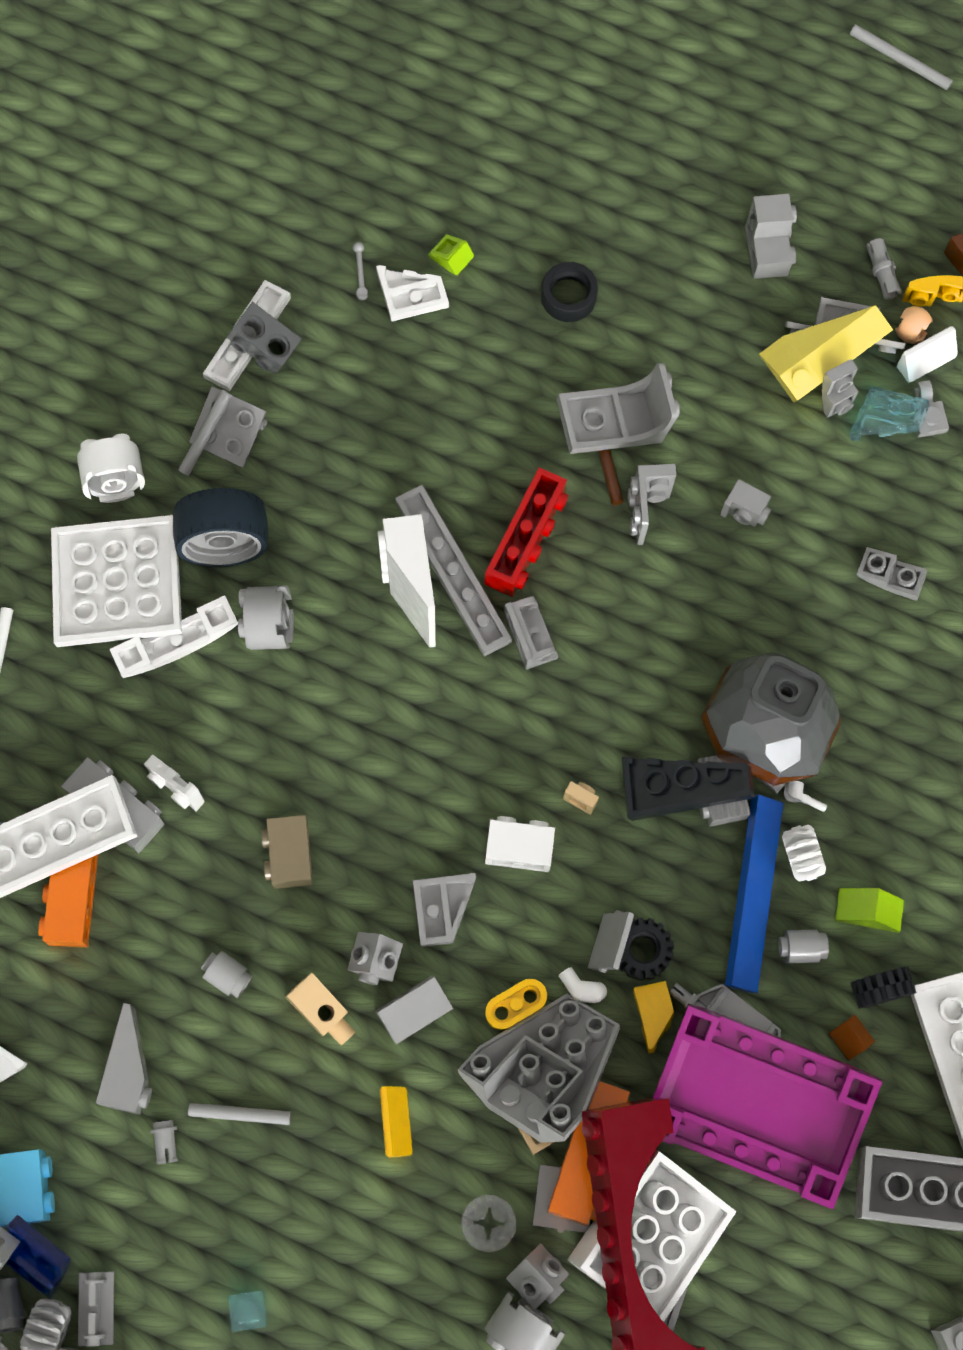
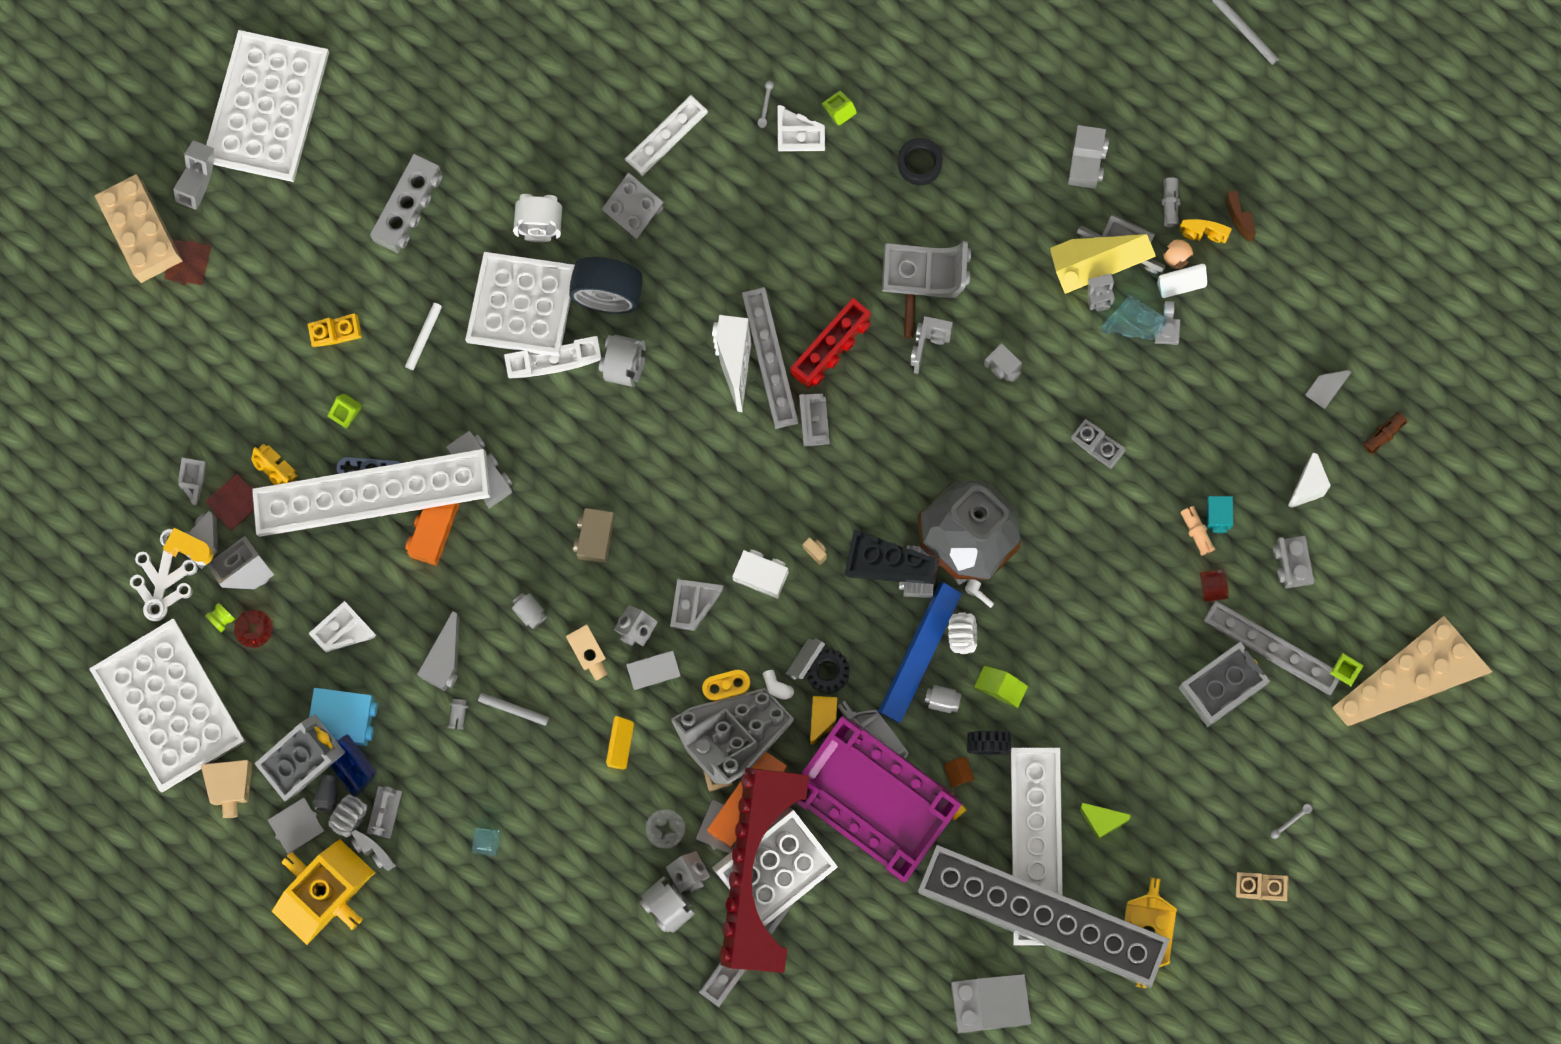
camera: 25 degrees right, 5 degrees up
(183, 793) = (531, 473): white wing -> none
(205, 432) = (614, 206): light grey bar -> none
(267, 331) = (681, 138): dark grey brick -> none

